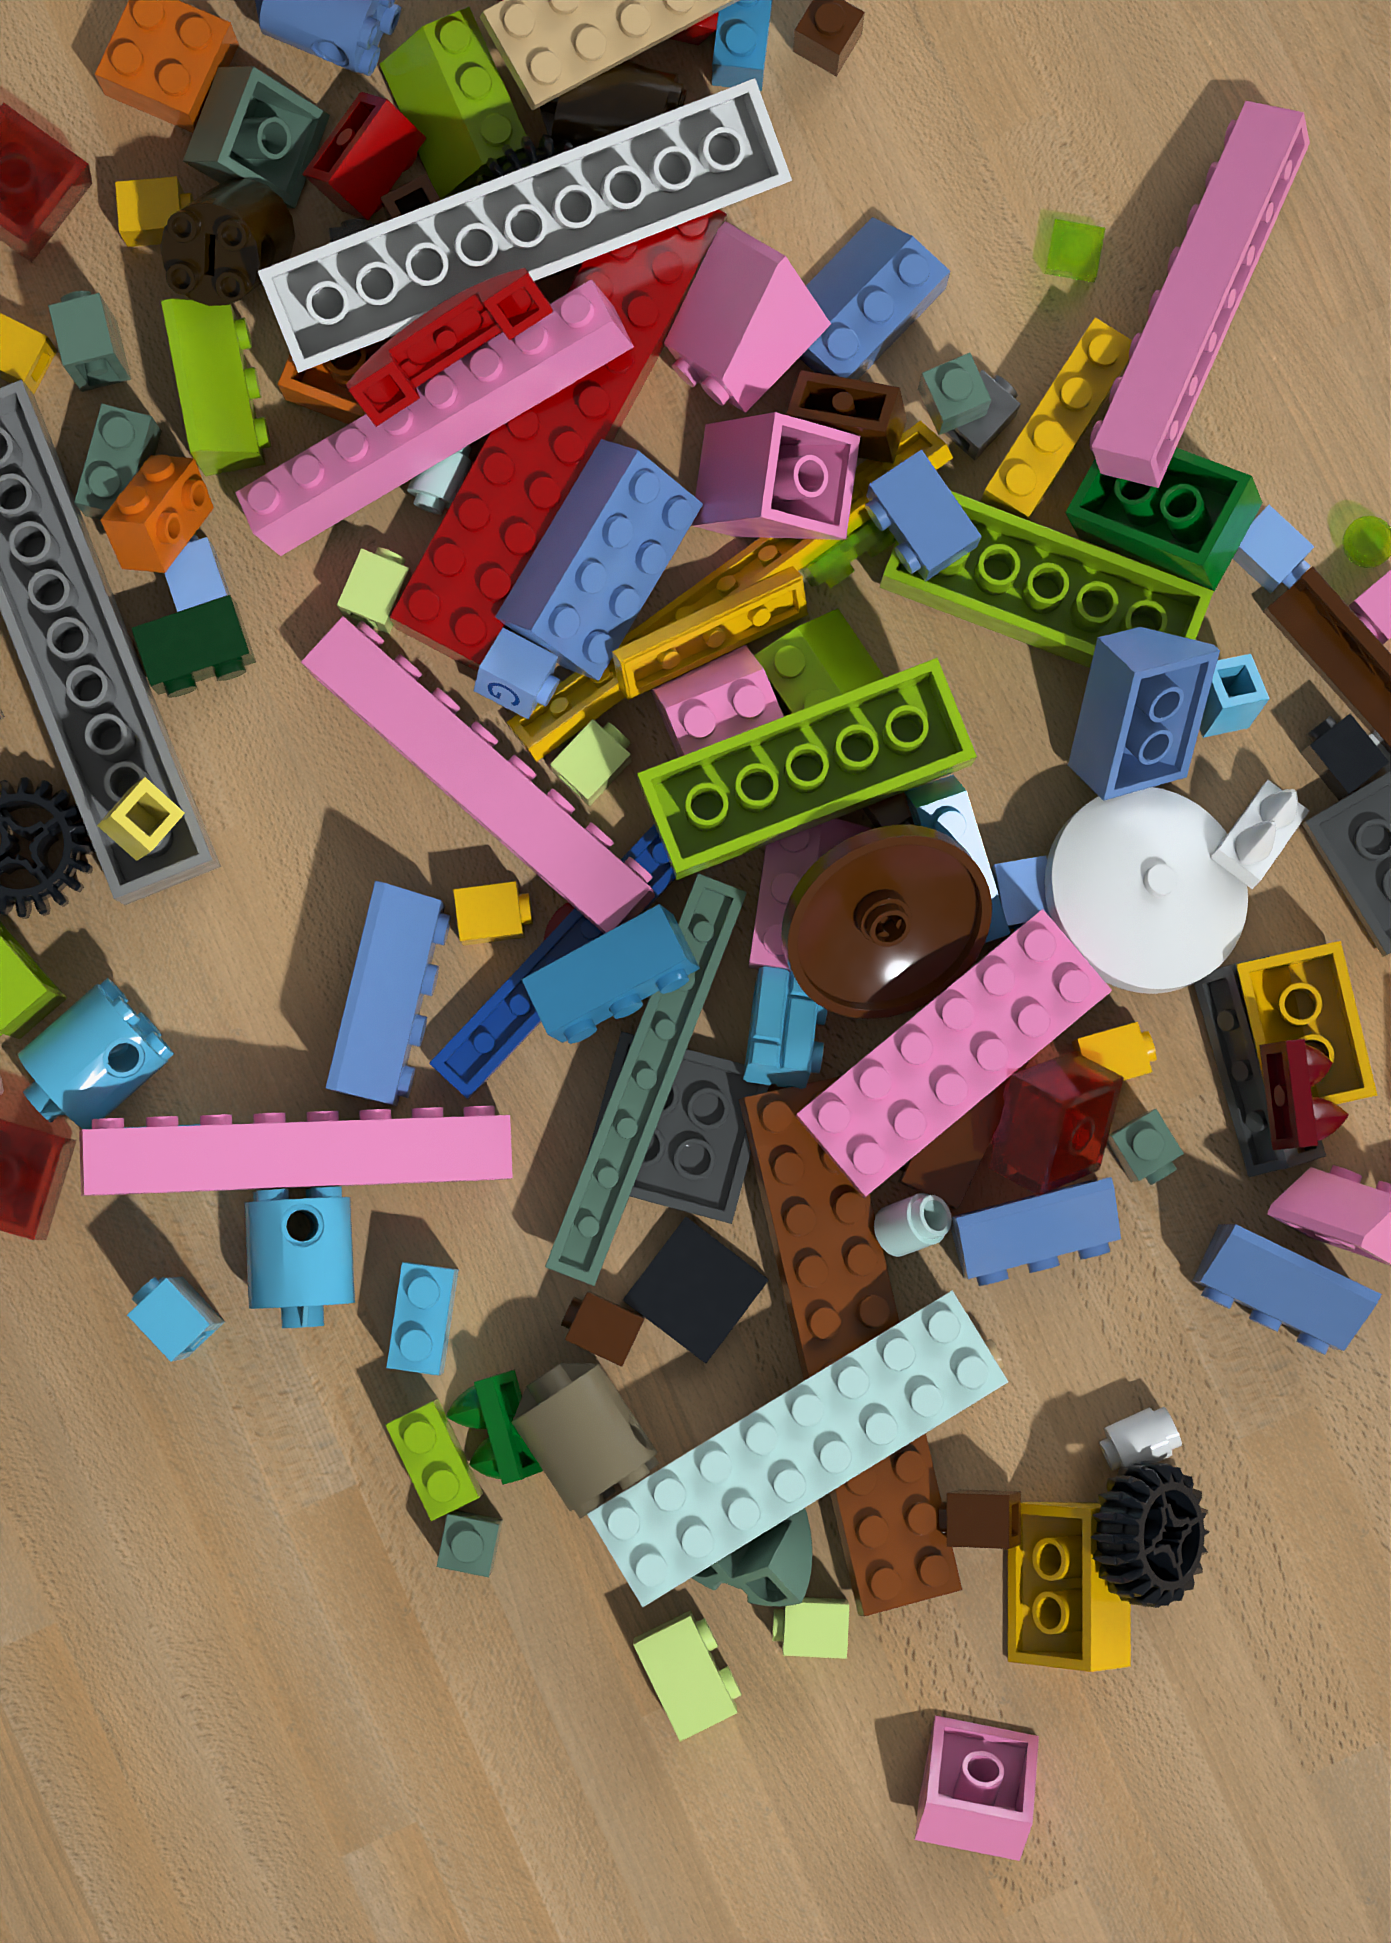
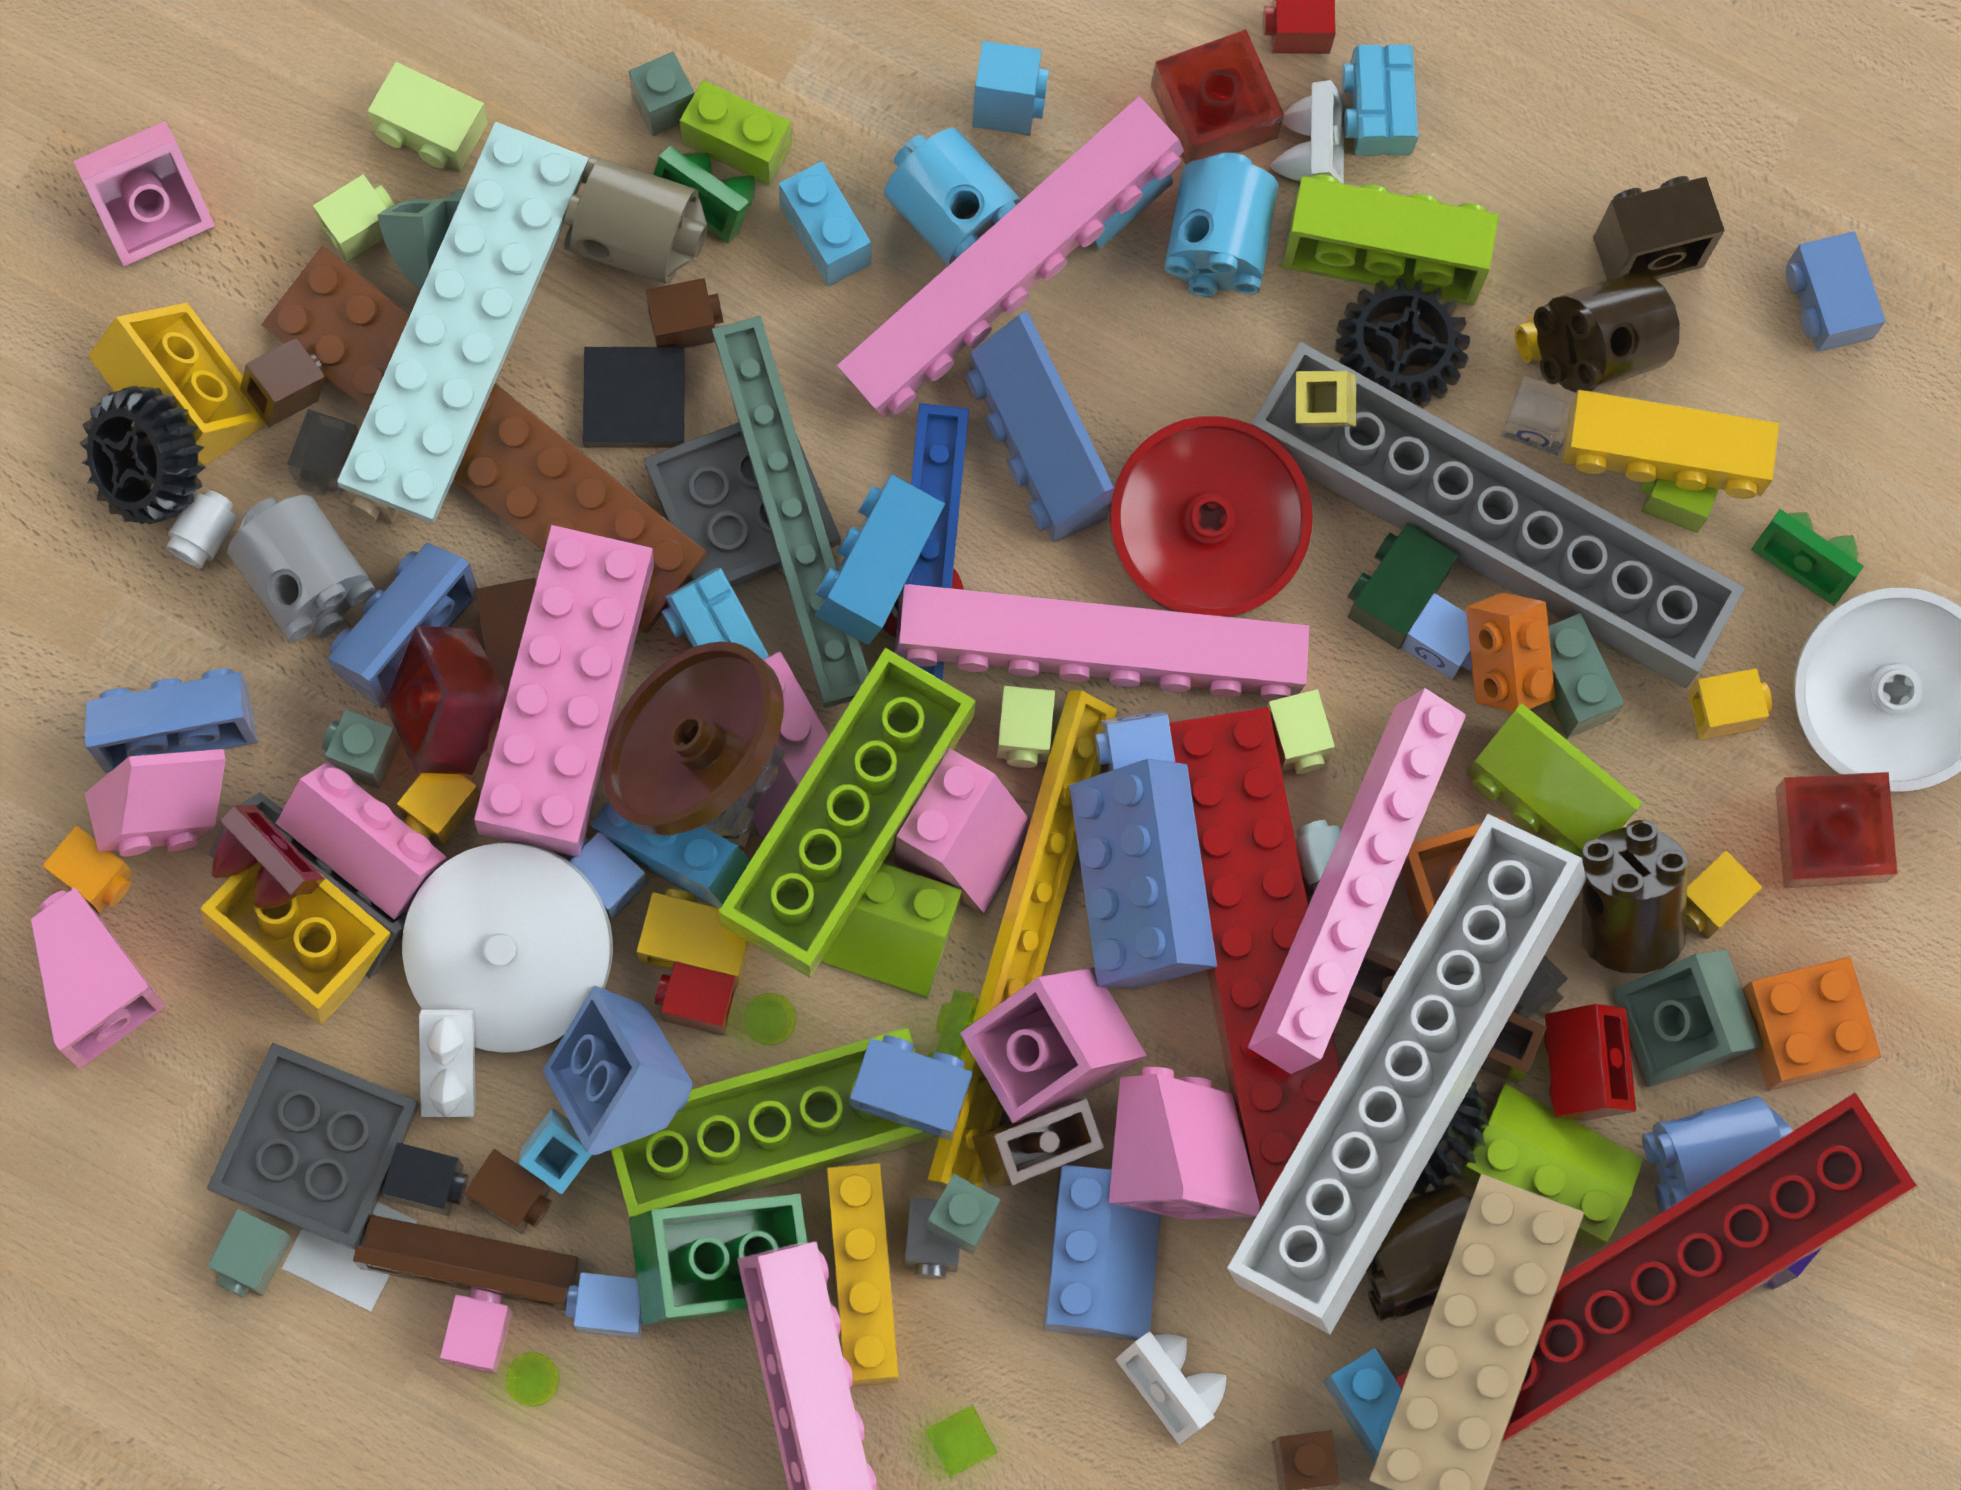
camera: 135 degrees right, 10 degrees down
(89, 340) = (1676, 748): sand green brick -> none
(306, 814) = (1210, 517): none -> red dish
(444, 336) = (1402, 923): red slope -> none
(491, 913) = (1011, 553): yellow brick -> none
(710, 633) = (1010, 886): yellow tile -> none
(887, 150) = (1179, 1402): none -> white tile
(912, 1224) = (502, 554): light aqua brick -> none
(976, 682) = (770, 1019): none -> clear neon green plate
(993, 1429) = (321, 452): none -> clear smoke brick
(998, 791) = (691, 935): none -> yellow brick
(1024, 739) = (696, 998): none -> red brick
(1088, 1339) = (298, 566): none -> light grey cylinder
(1200, 1066) = (359, 838): none -> bright pink brick
(1291, 695) = (509, 1192): none -> reddish brown brick

